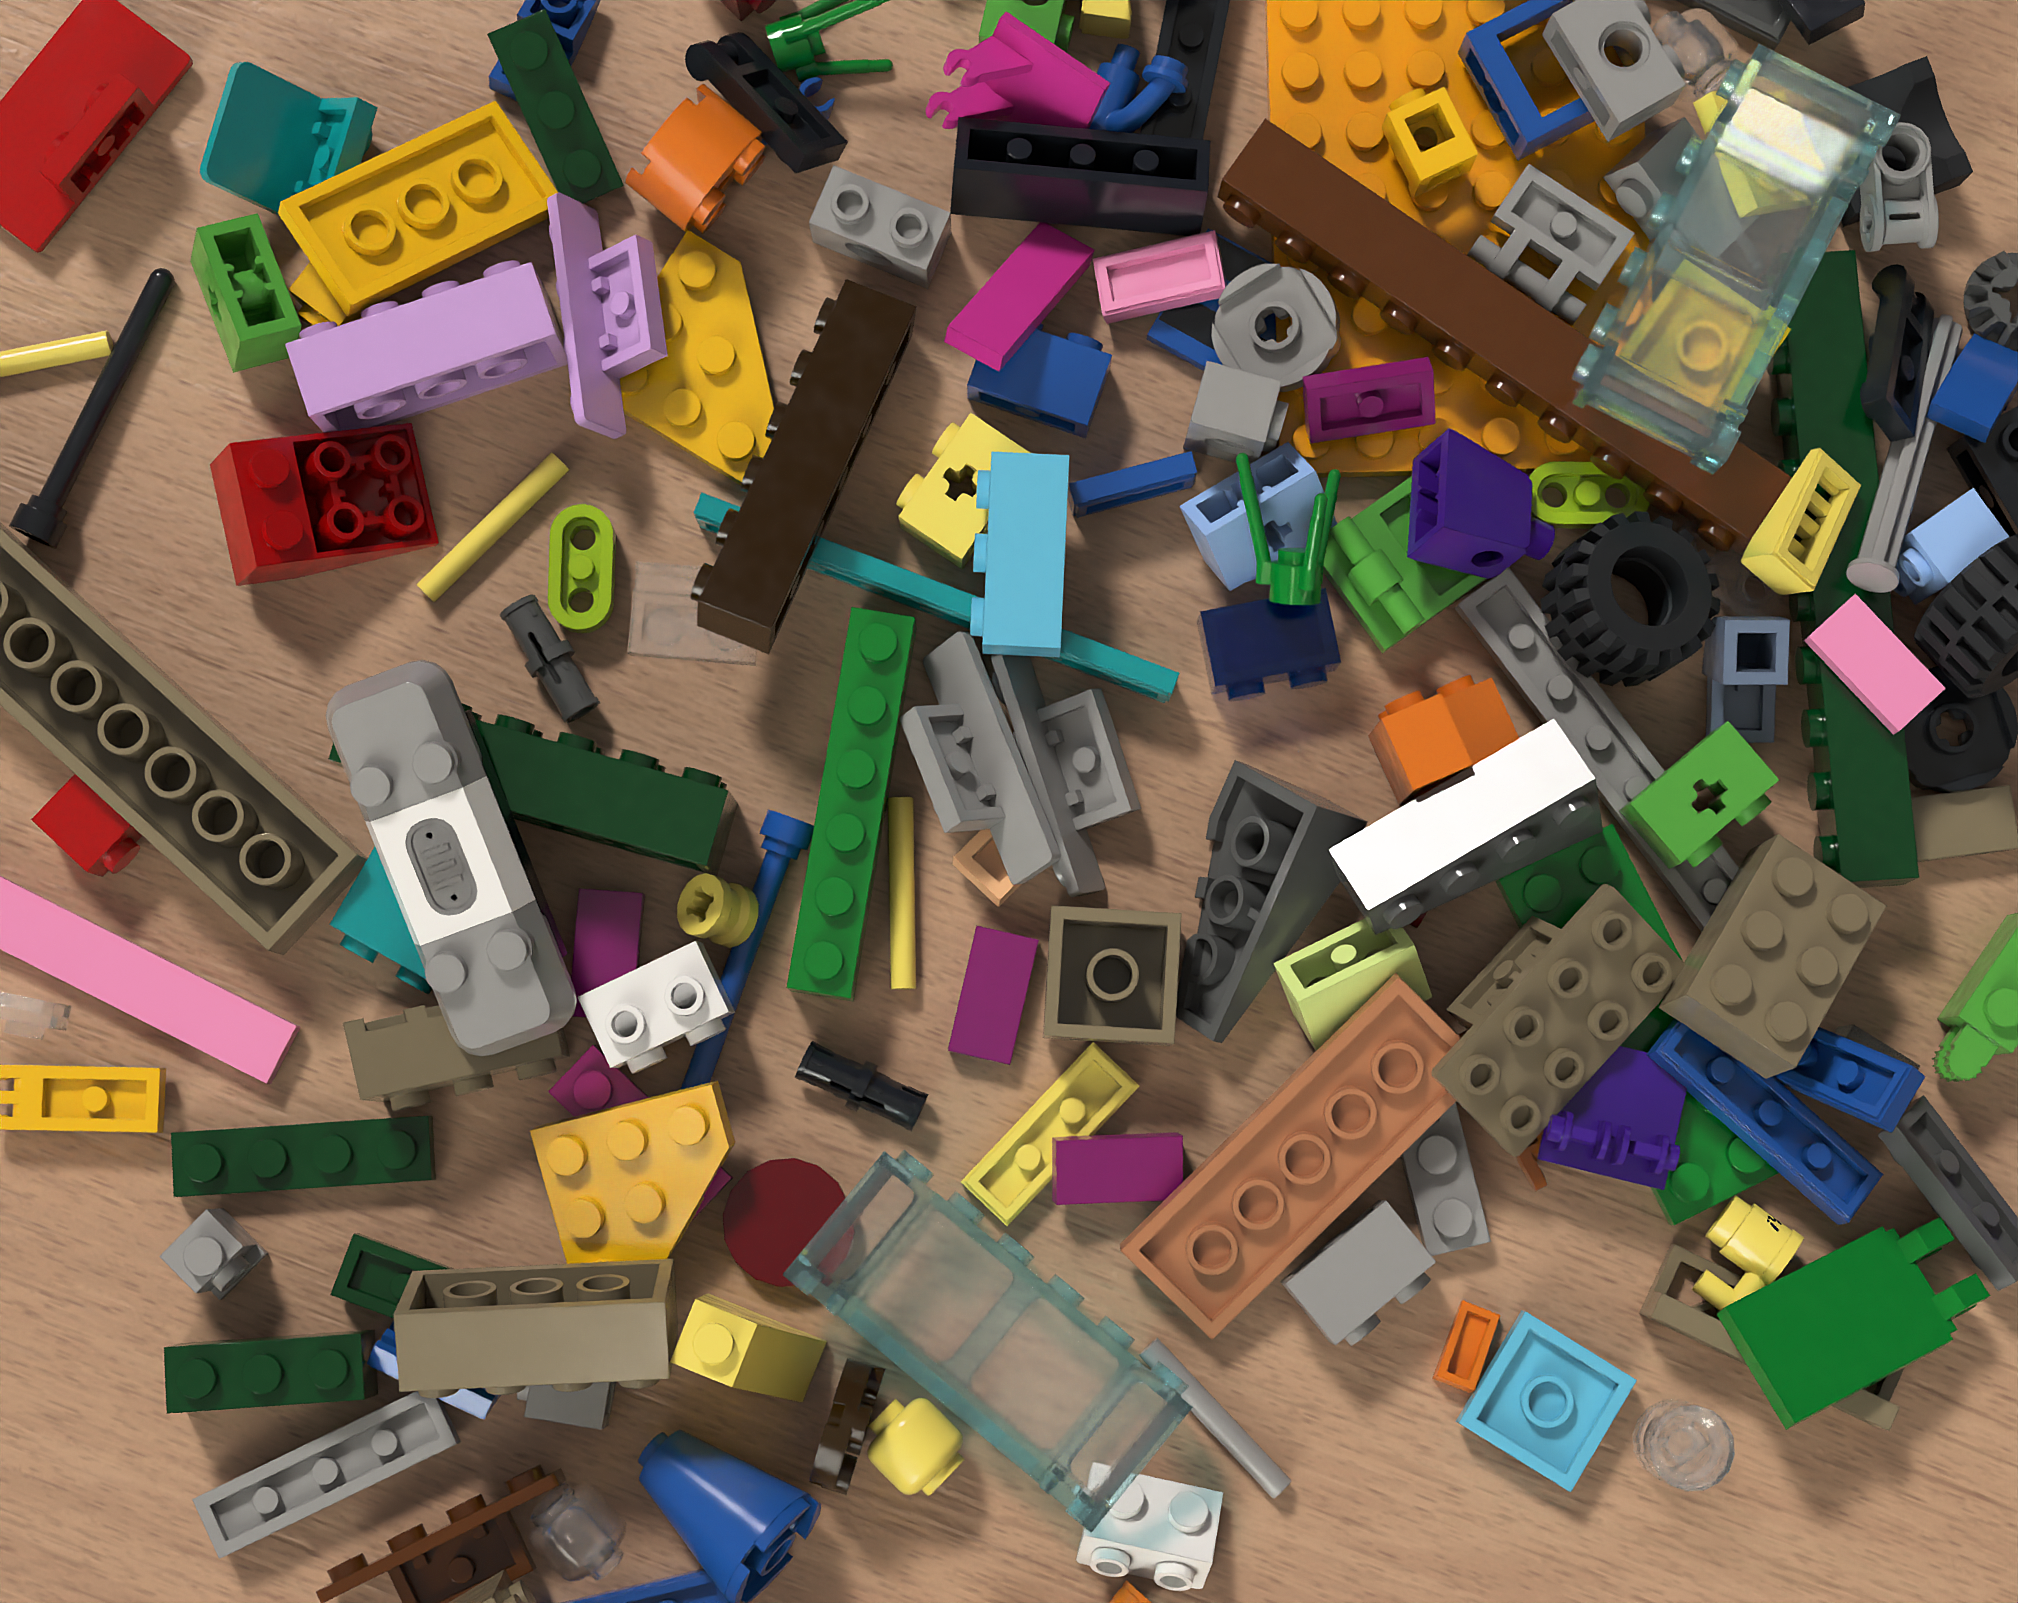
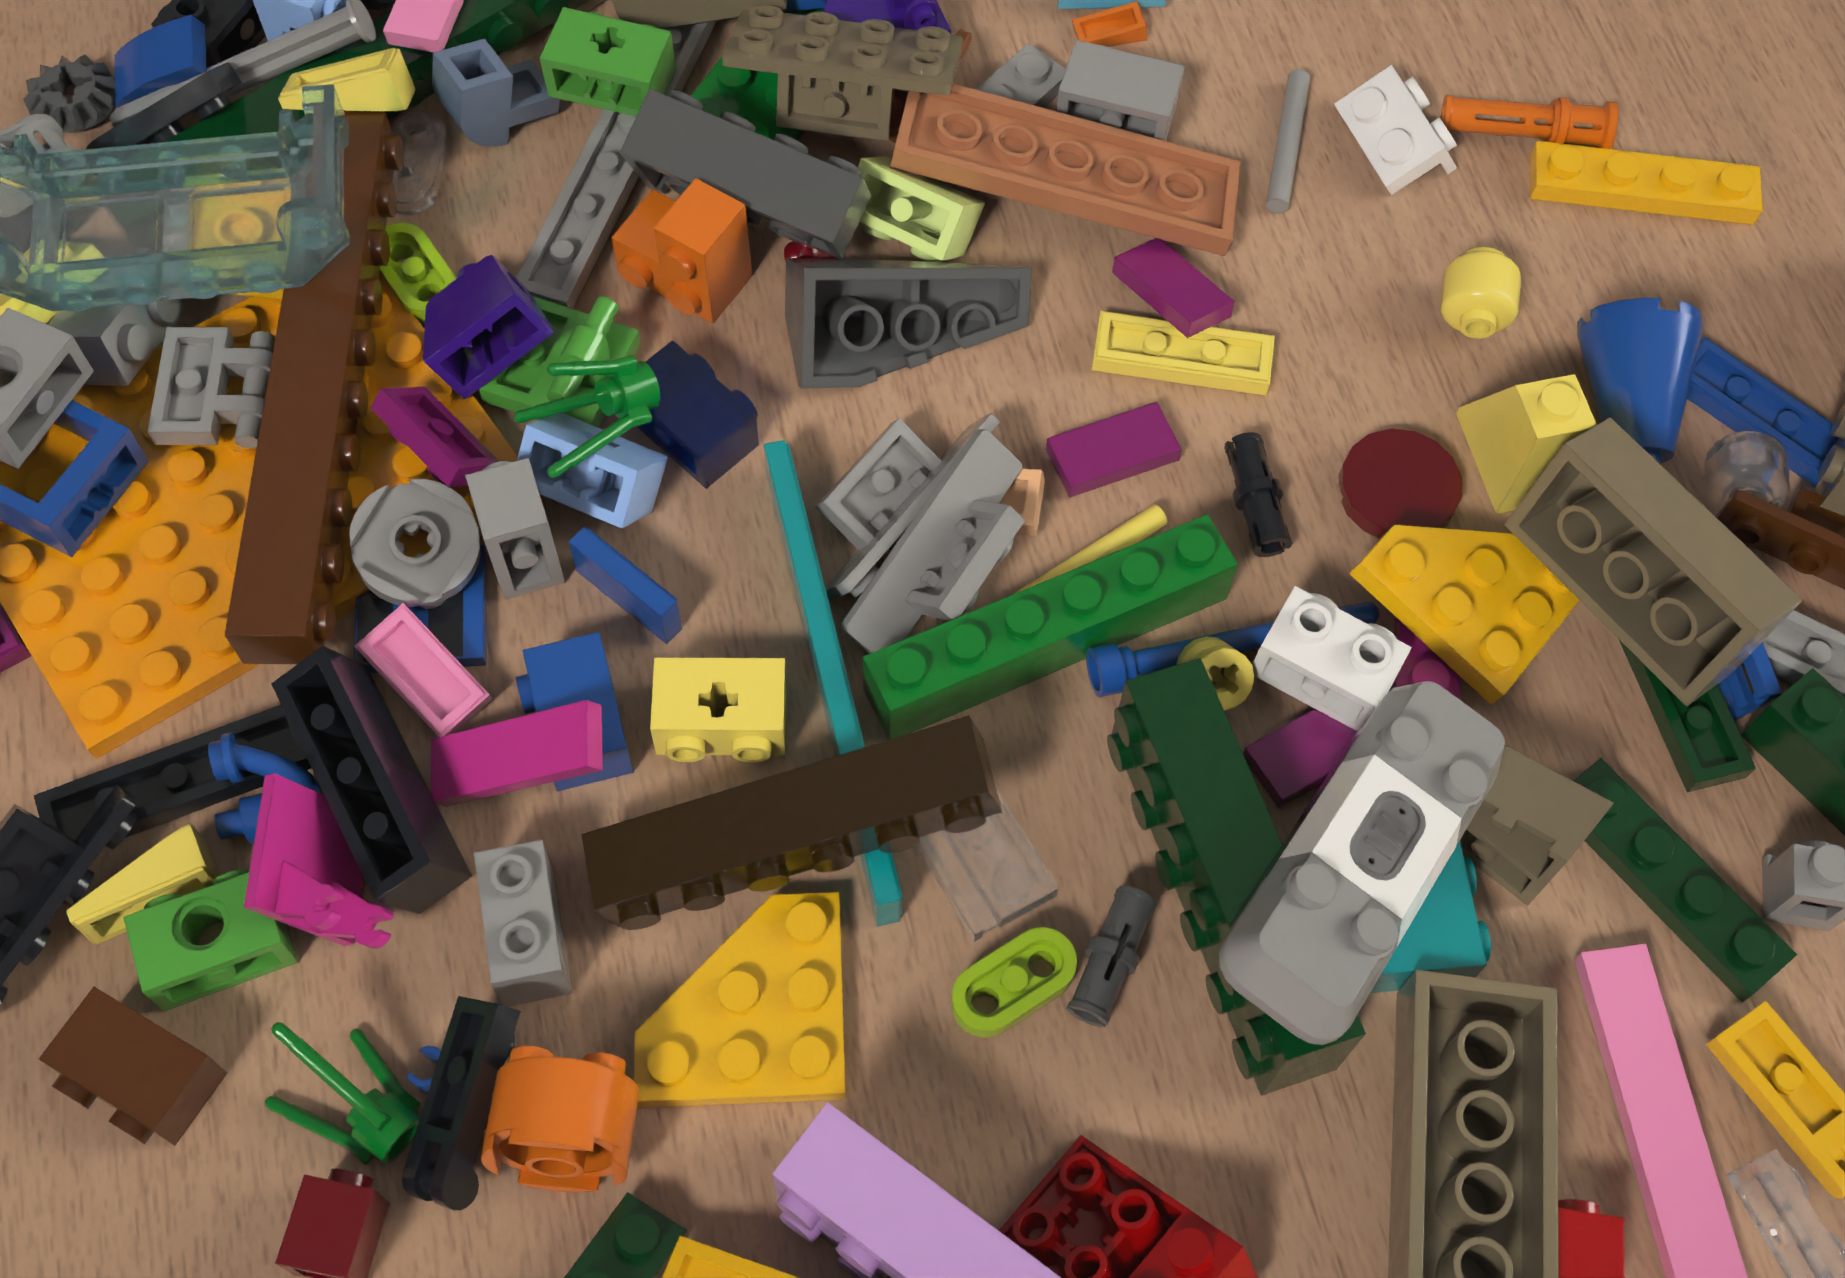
camera: 125 degrees left, 20 degrees down
(492, 527) = (1032, 1093): light yellow bar -> none
(606, 312) = (759, 1105): lavender bracket -> none
(846, 1425) = (1515, 330): dark brown plate -> none
(991, 1336) = (1365, 269): clear windscreen -> none
(1021, 554) = (749, 595): medium azure brick -> none
(1112, 975) = (1038, 359): dark tan brick -> none
(1436, 117) = (168, 516): yellow brick -> none
(1664, 572) = (483, 184): black tyre -> none

